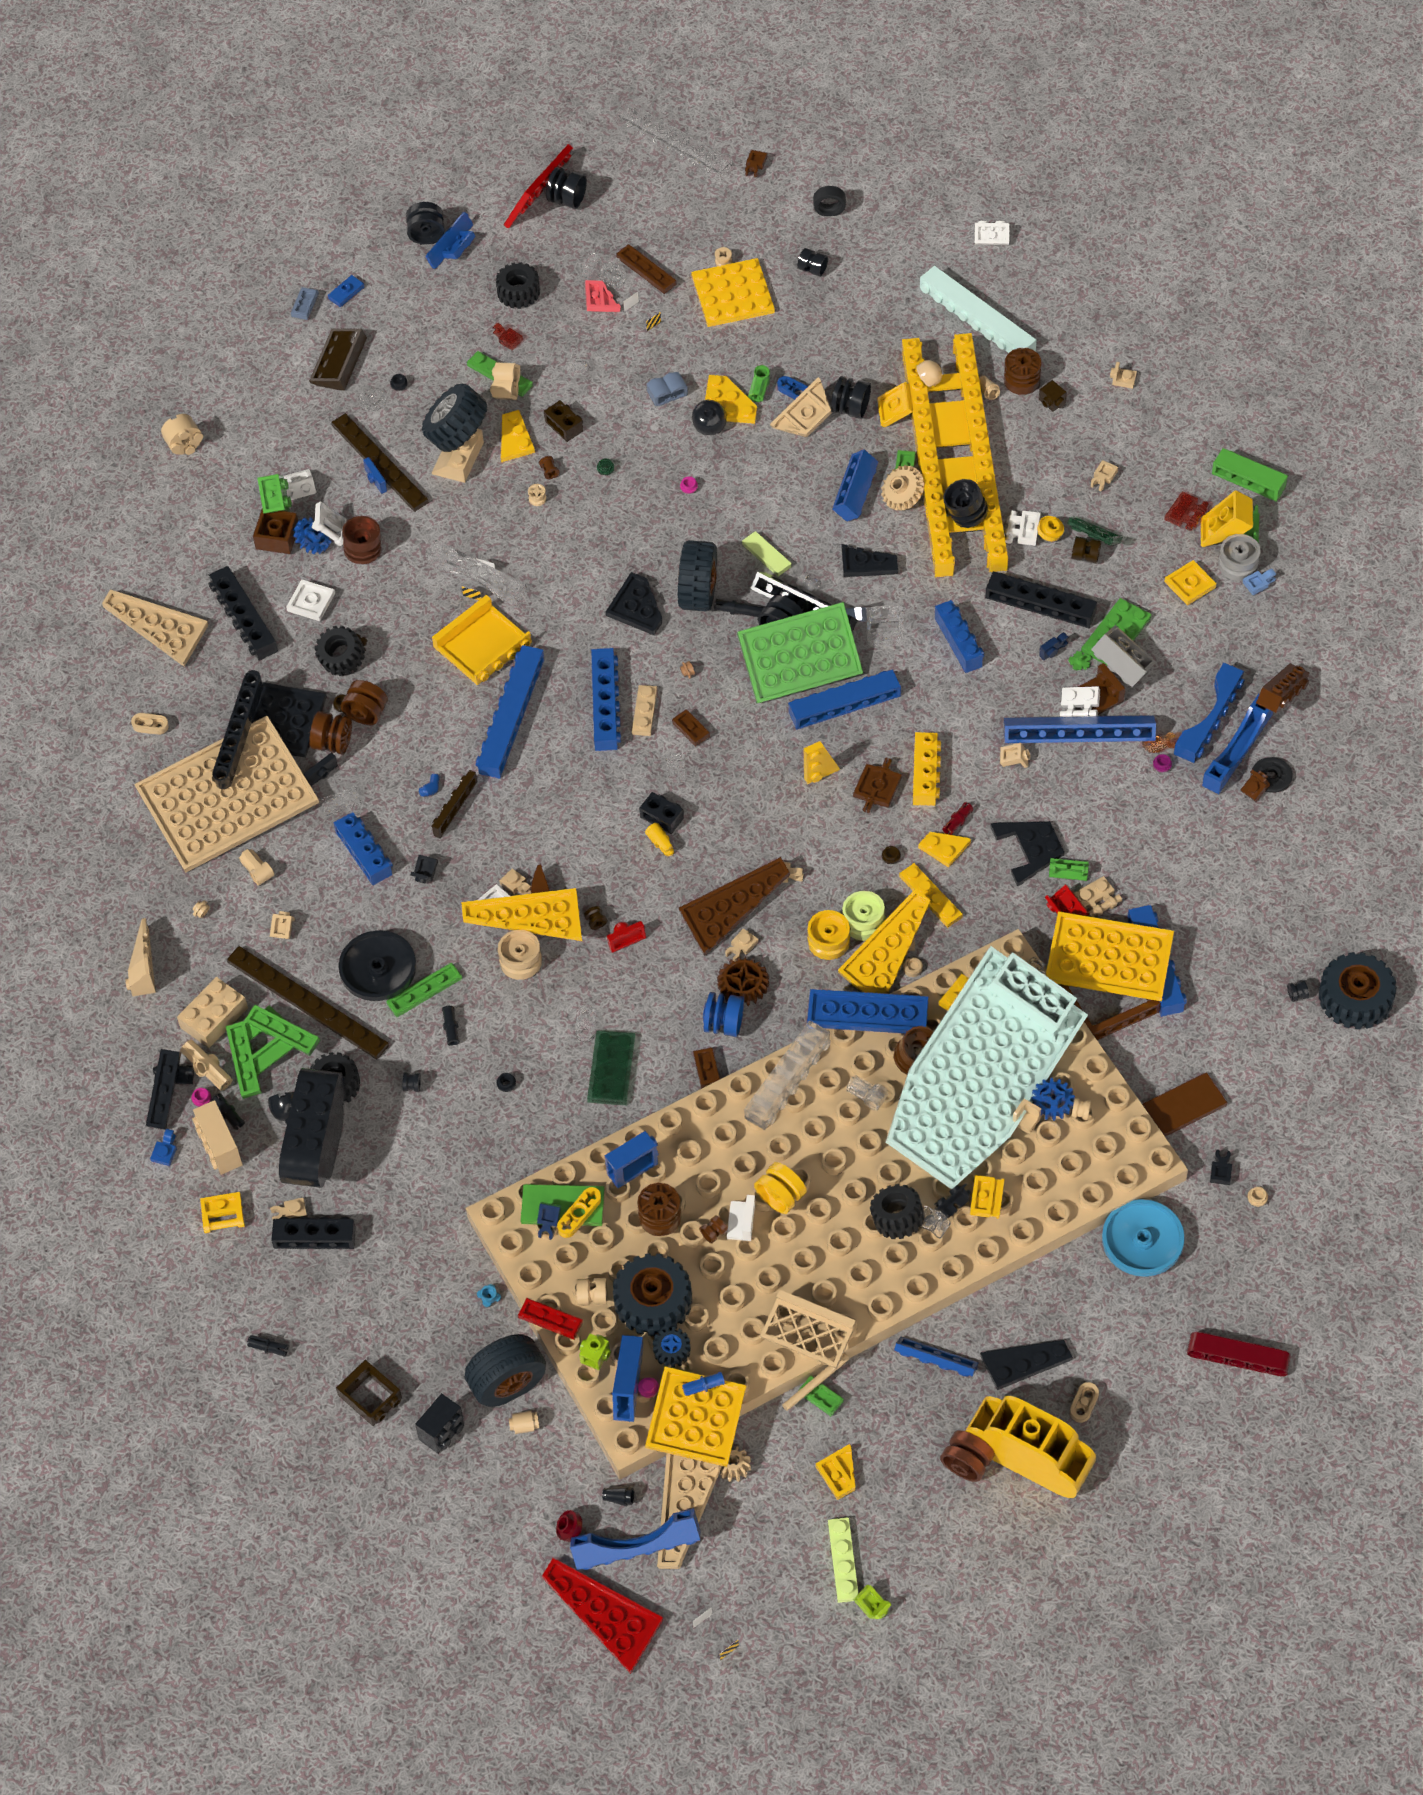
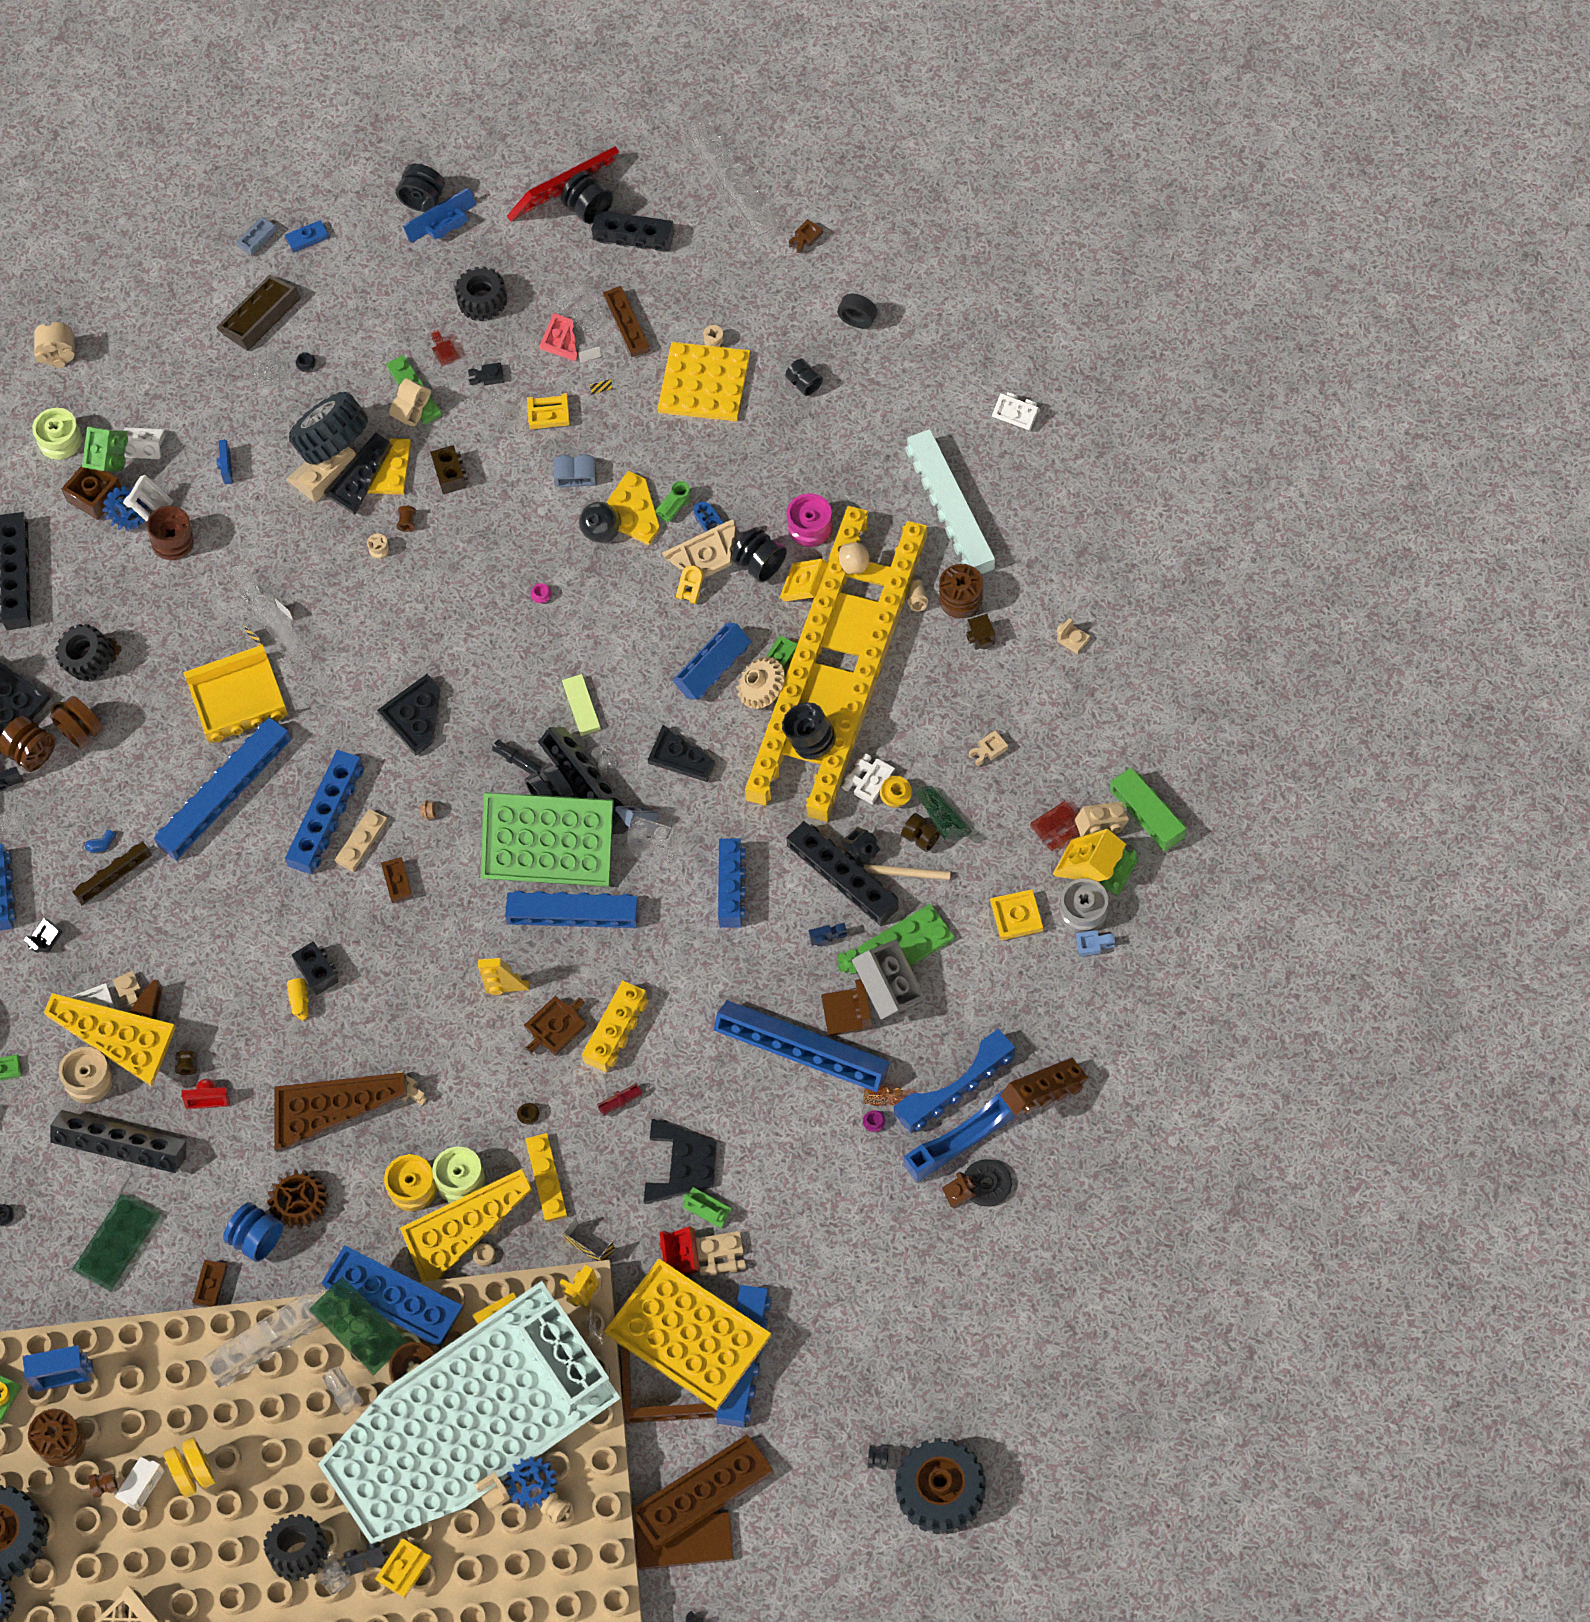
camera: 25 degrees right, 5 degrees up
(221, 500) = (57, 433): none -> yellowish green wheel
(310, 600) = (89, 581): white plate -> none
(391, 473) = (240, 448): dark brown plate -> none
(492, 450) = (357, 477): none -> black wing
(554, 342) = (489, 374): none -> black plate
(574, 992) = (118, 1141): none -> black brick
(605, 463) = (465, 534): clear green plate -> none
(614, 201) = (645, 231): none -> black brick
(620, 357) = (548, 415): none -> yellow plate
(697, 575) = (482, 708): black wheel -> none
(742, 944) = (323, 1154): tan plate -> none
(807, 430) = (692, 577): none -> yellow plate
(855, 1039) = (357, 1325): none -> clear green plate
(875, 360) = (809, 520): none -> dark pink wheel
(944, 847) = (589, 1126): yellow wing -> none
(989, 932) = (570, 1229): none -> sticker
(1014, 754) = (718, 1048): tan bracket -> none
(1016, 944) = (583, 1288): none -> yellow bracket
(1046, 573) = (861, 845): none -> black brick
(1080, 697) = (823, 1007): white plate -> none
(1092, 582) = (910, 872): none -> tan bar
(1179, 1064) = (701, 1491): none -> reddish brown plate
(1218, 490) = (1101, 817): none -> tan brick

